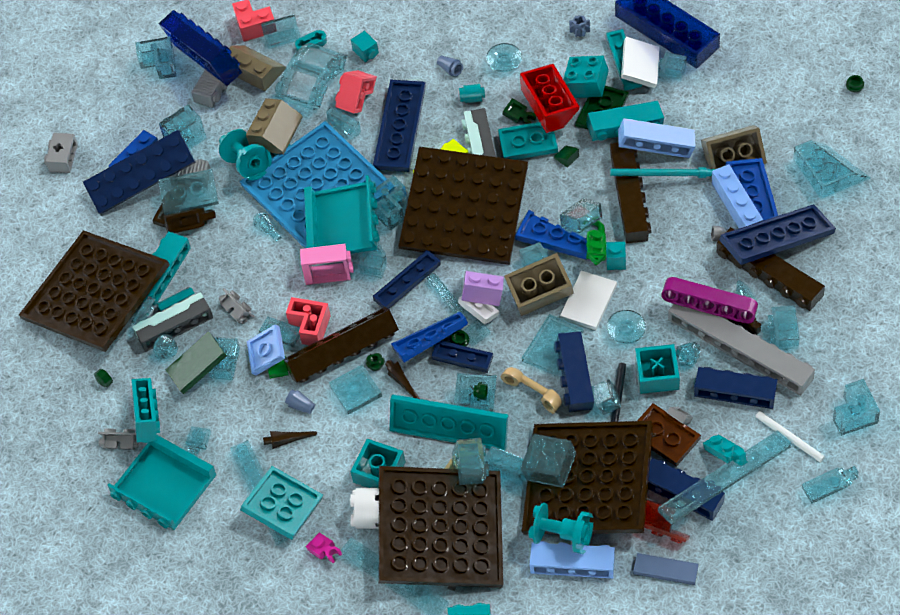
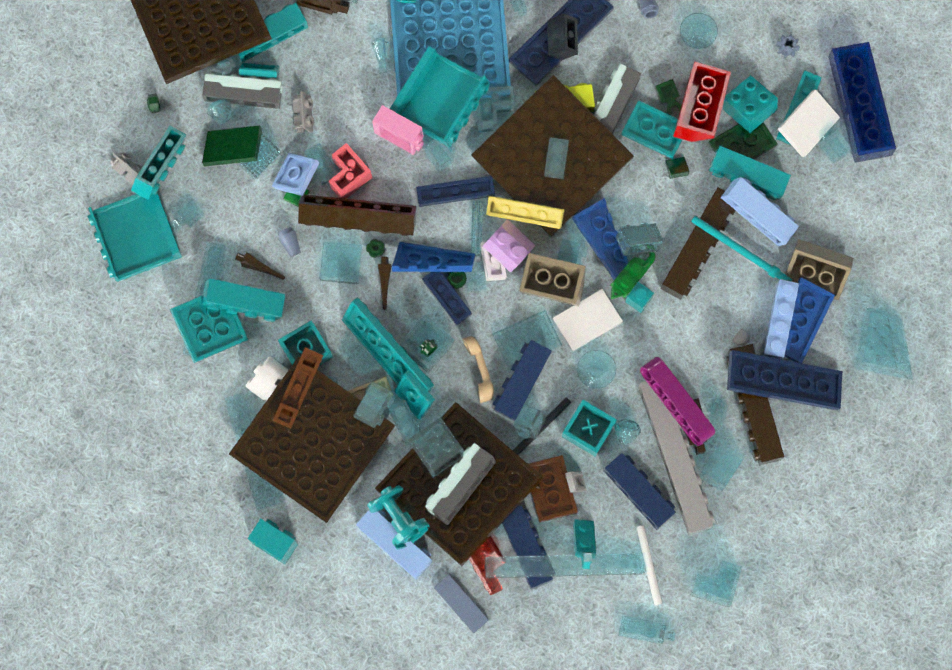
camera: 30 degrees right, 20 degrees up
(296, 463) = (243, 299): none -> teal brick
(323, 546) = (214, 385): dark pink plate -> none
(397, 486) = (297, 387): none -> reddish brown slope
(404, 120) = (562, 37): none -> black brick
(469, 200) = (556, 158): none -> clear light blue plate
(471, 93) = (644, 47): teal brick -> none
(475, 256) = (525, 212): none -> light yellow tile
(498, 434) = (415, 394): none -> teal tile
(590, 471) = (460, 483): none -> dark grey piece

